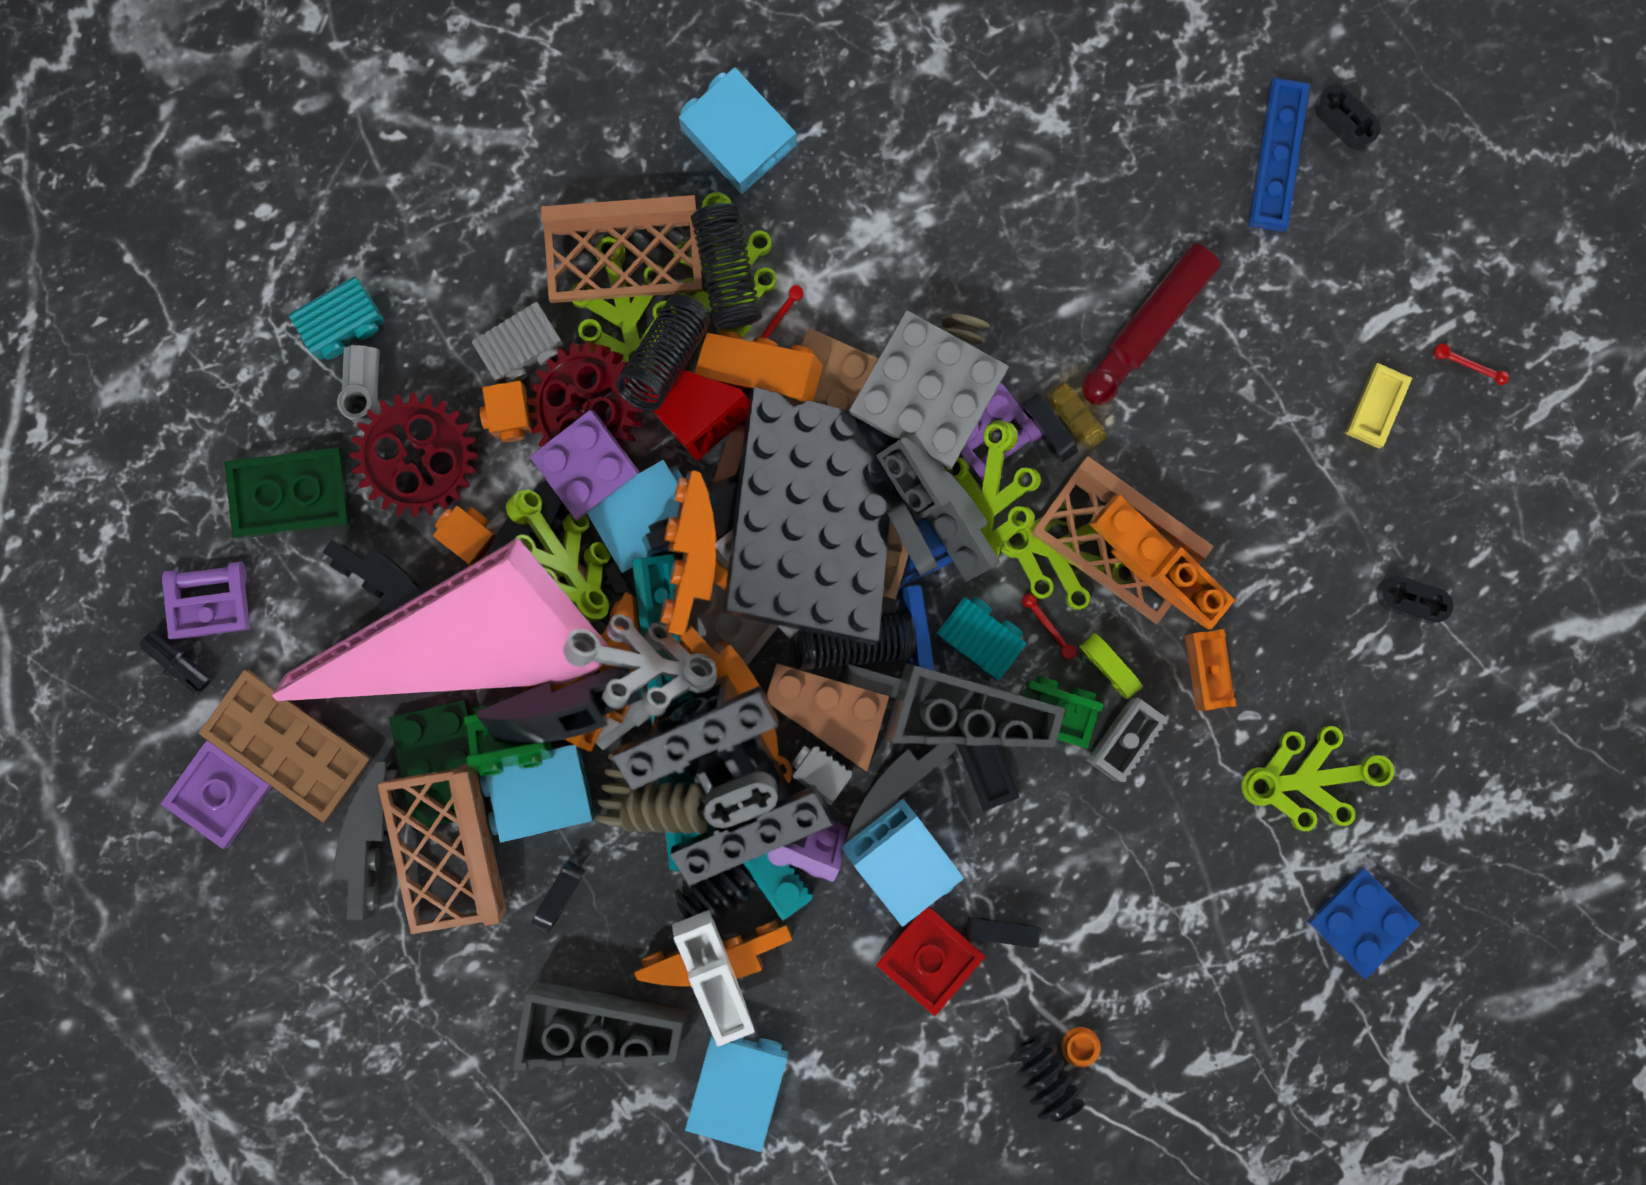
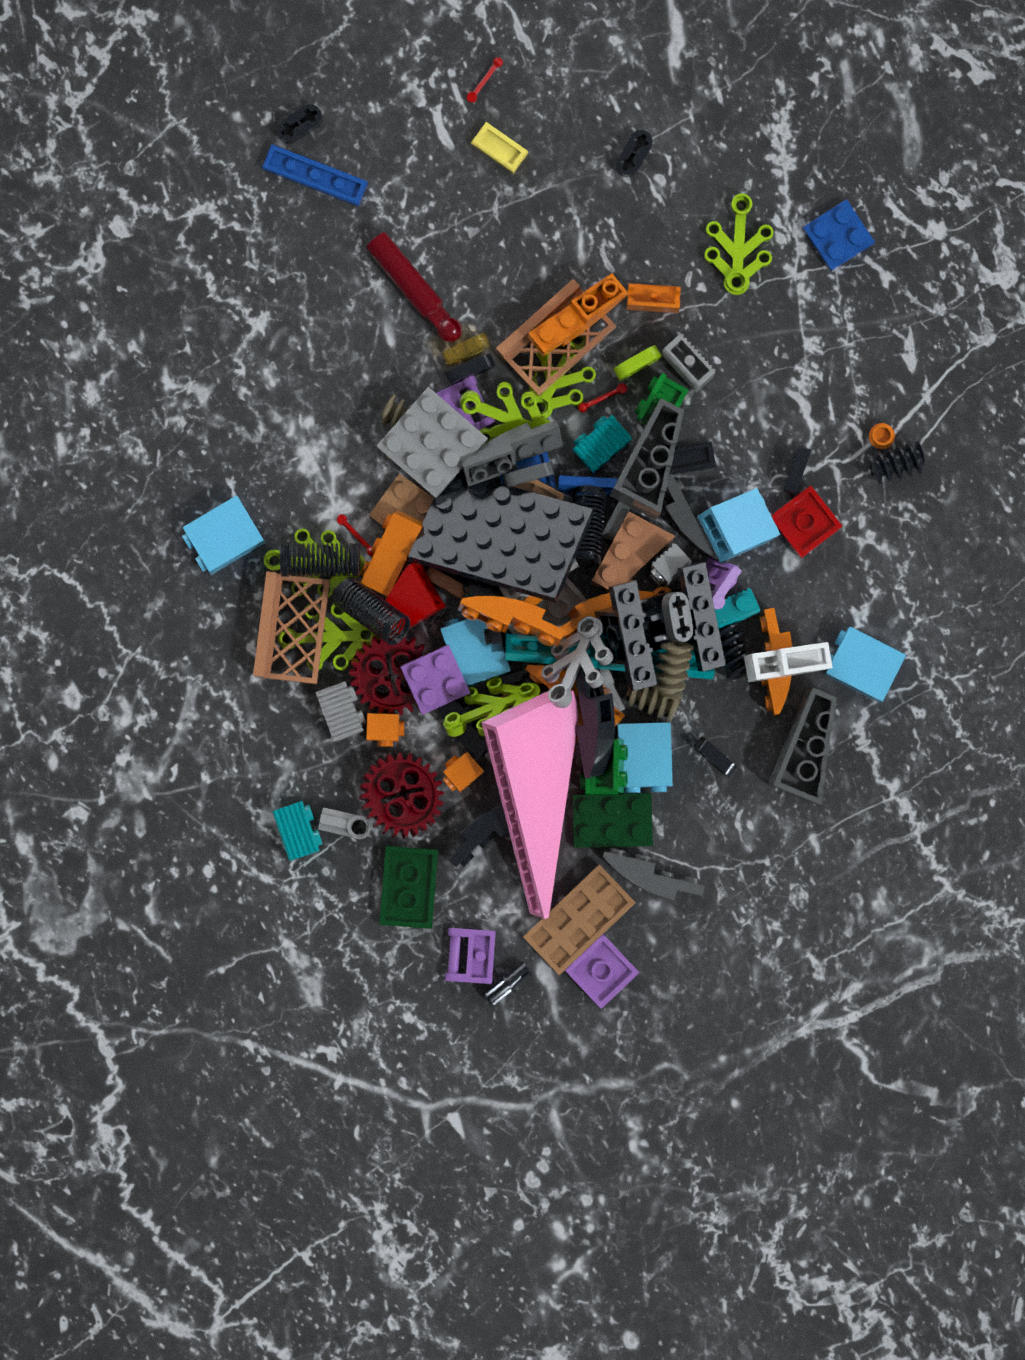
camera: 80 degrees left, 0 degrees up
(476, 842) = (665, 802): nougat fence -> none

